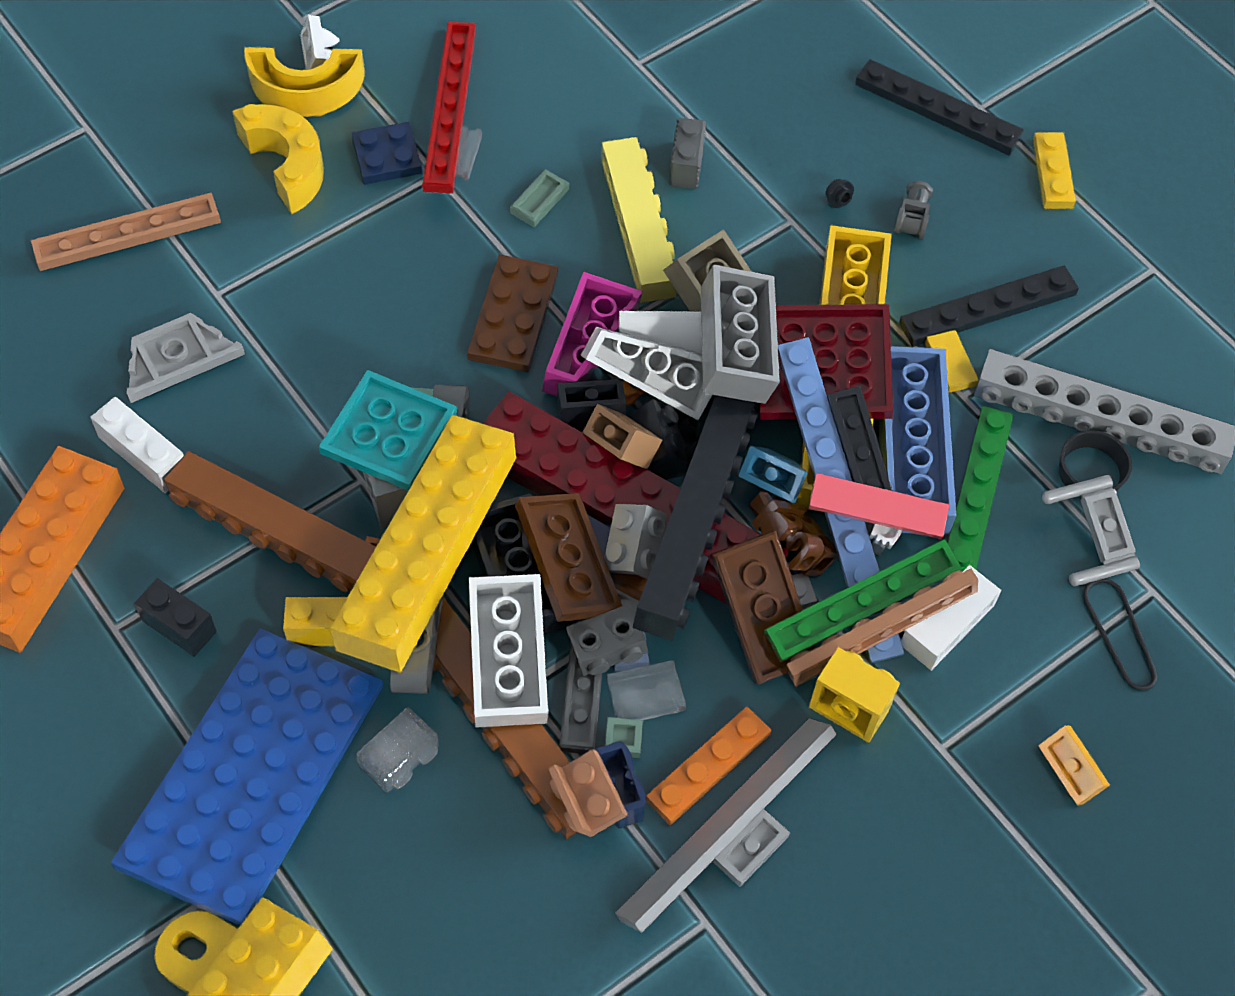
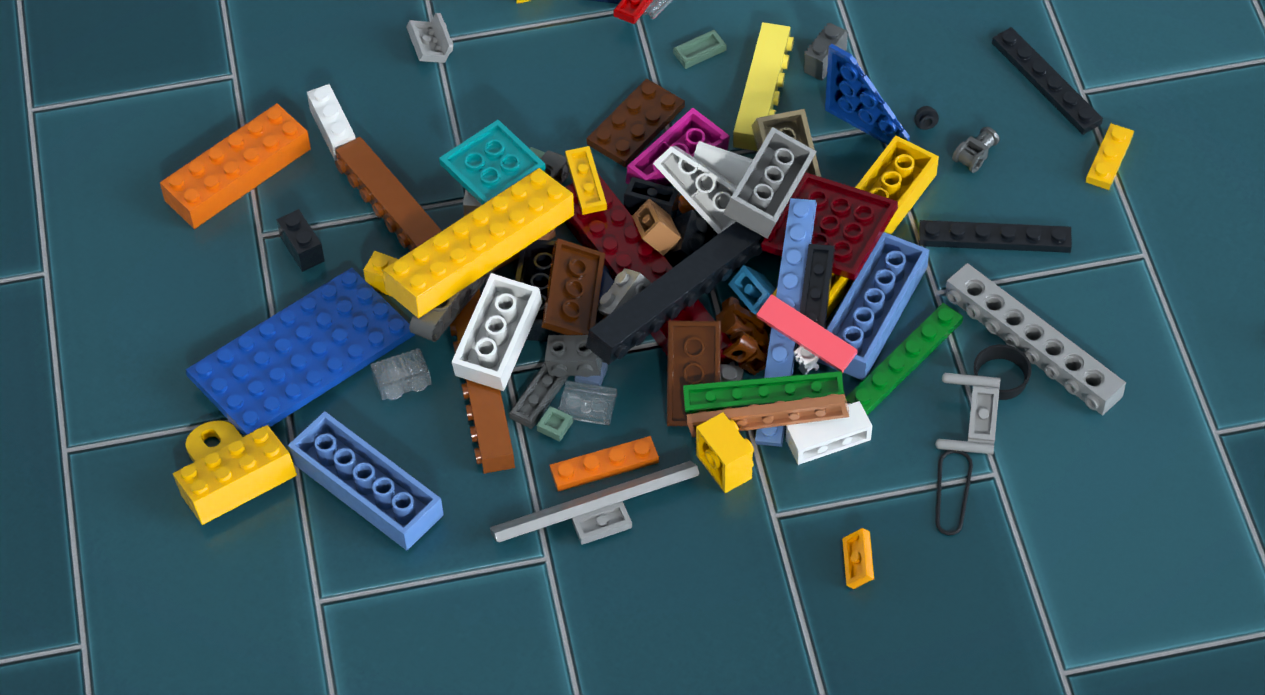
camera: 30 degrees right, 5 degrees down
(176, 354) = (386, 71): light grey wing -> none
(212, 293) = (430, 39): none -> light grey bracket
(429, 919) = (366, 480): none -> medium blue brick
(509, 408) = (585, 180): none -> yellow plate
(587, 794) = (503, 441): nougat bracket -> none
(620, 767) = (533, 448): dark blue brick -> none
(769, 198) = (856, 100): none -> blue slope
(959, 368) = (940, 264): yellow tile -> none

